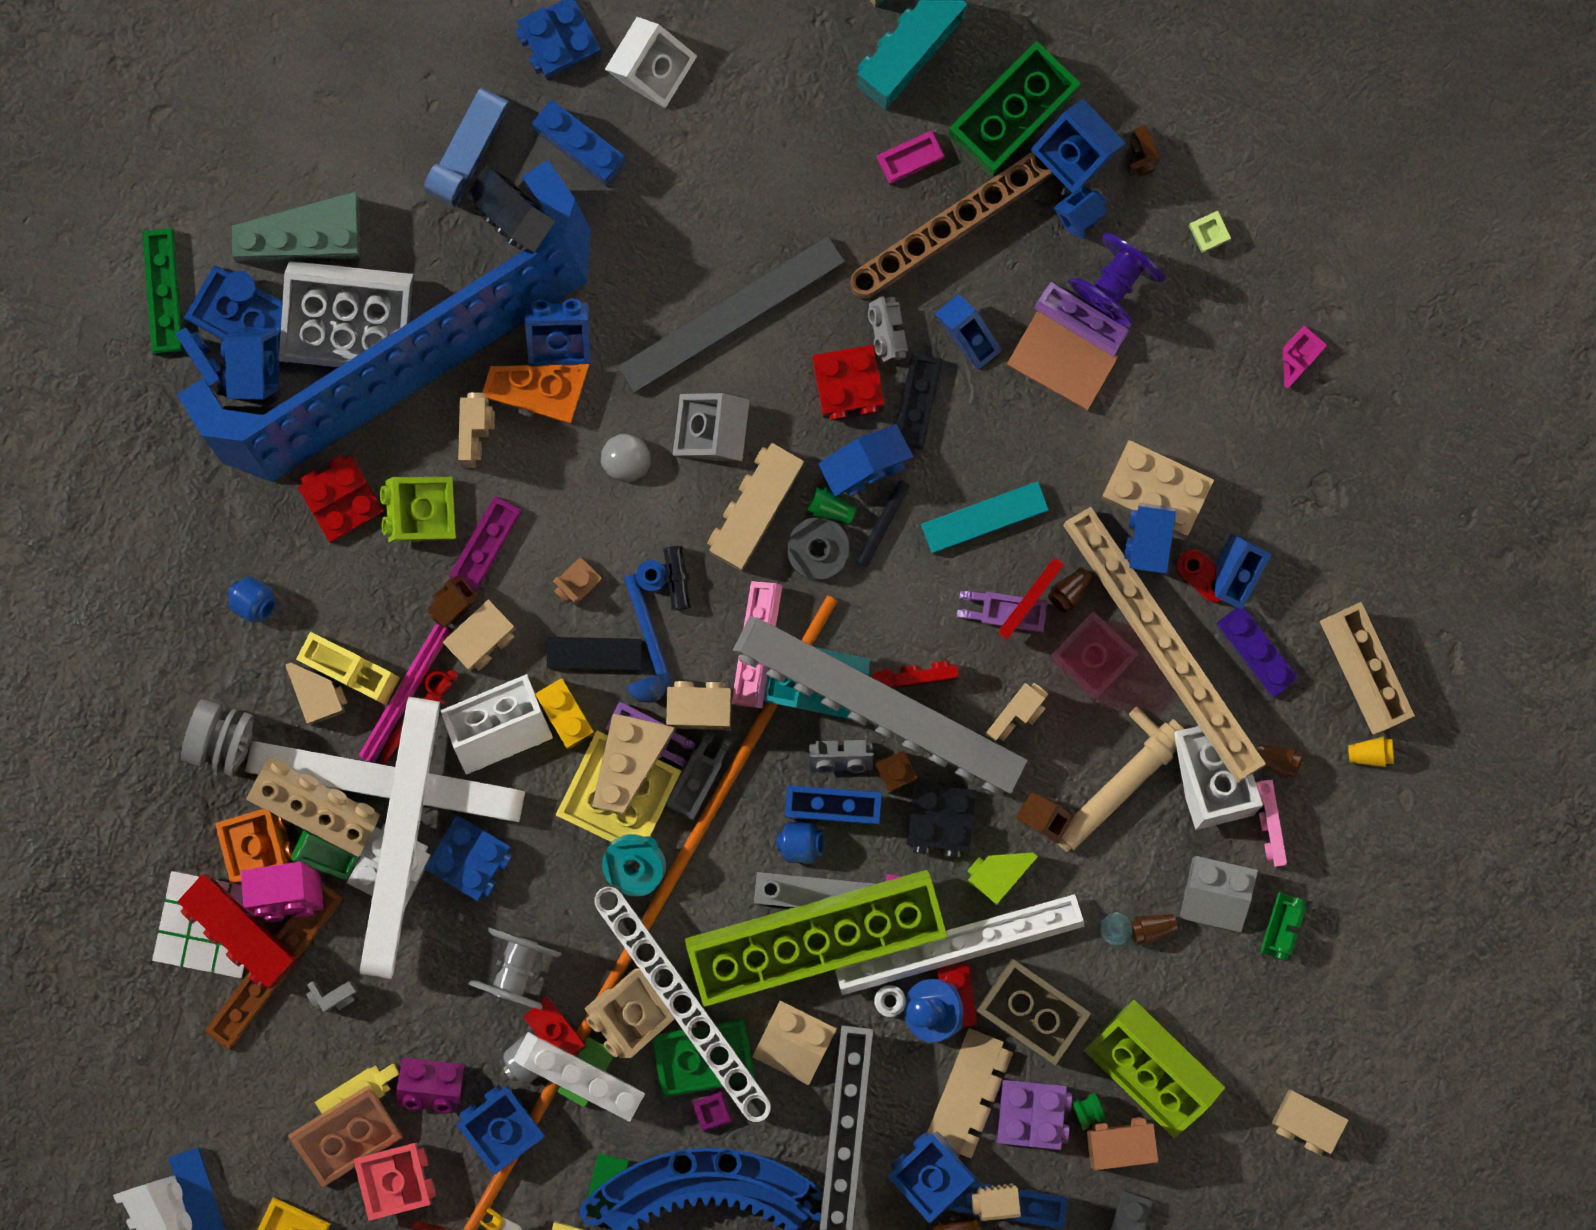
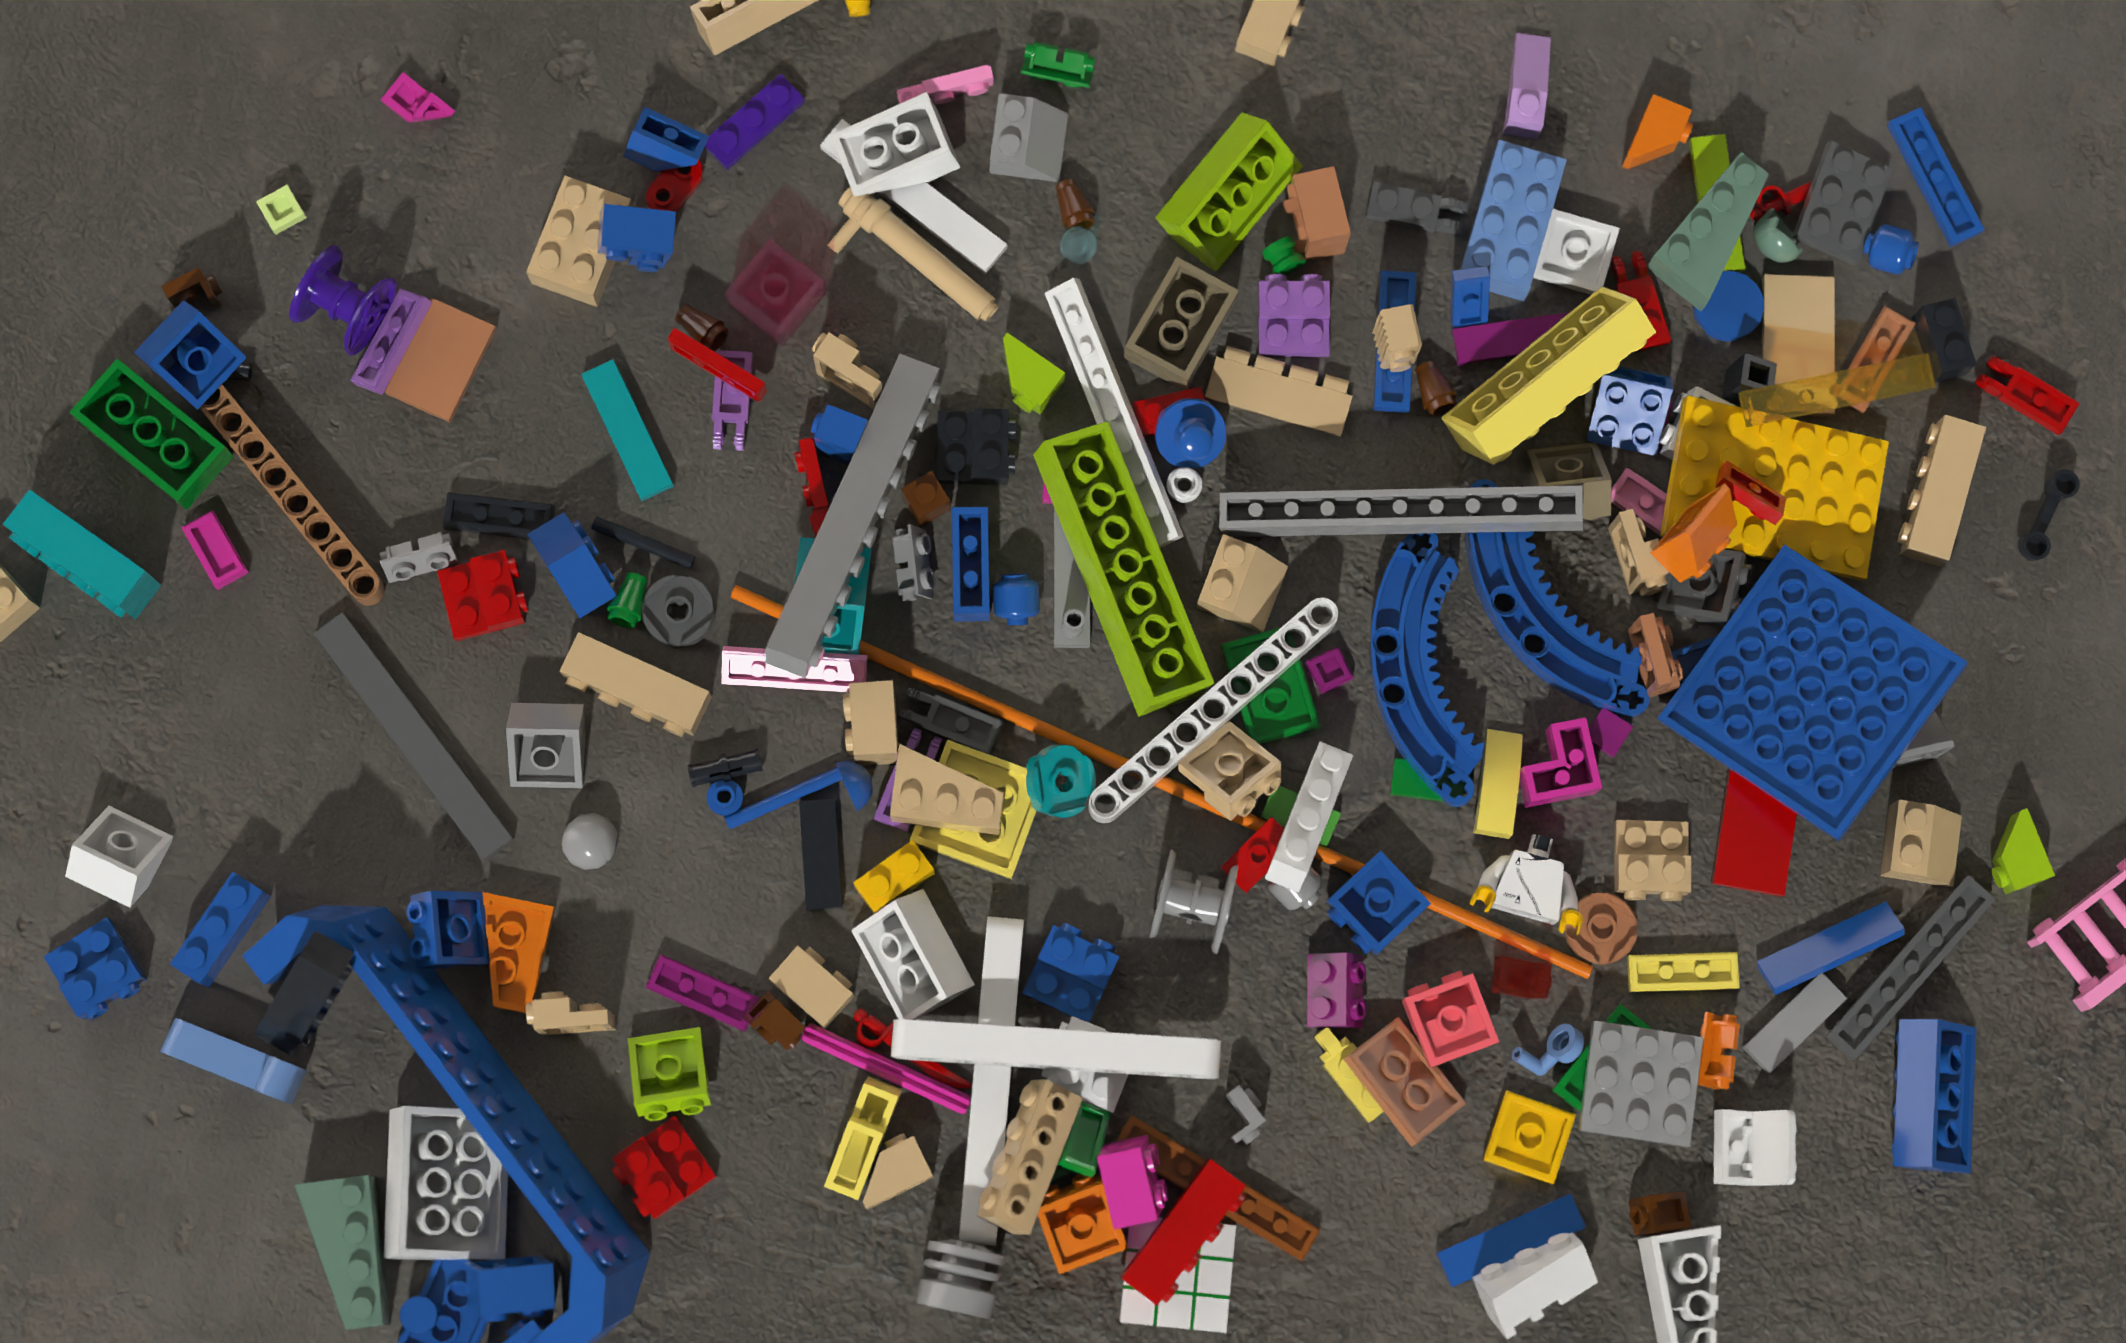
camera: 100 degrees left, 5 degrees down
(251, 599) = (792, 1260): blue head -> none
(576, 582) = (739, 882): medium nougat bracket -> none
(931, 1175) = (1374, 417): blue plate -> none
(958, 699) = (837, 433): none -> blue brick
(968, 331) = (413, 465): blue slope -> none
(1044, 817) = (962, 331): reddish brown brick -> none
(1081, 210) = (266, 351): blue brick -> none
(1150, 813) = (939, 217): none -> white tile
(1164, 645) = (755, 216): tan plate -> none
(1281, 760) = (873, 86): reddish brown cone -> none

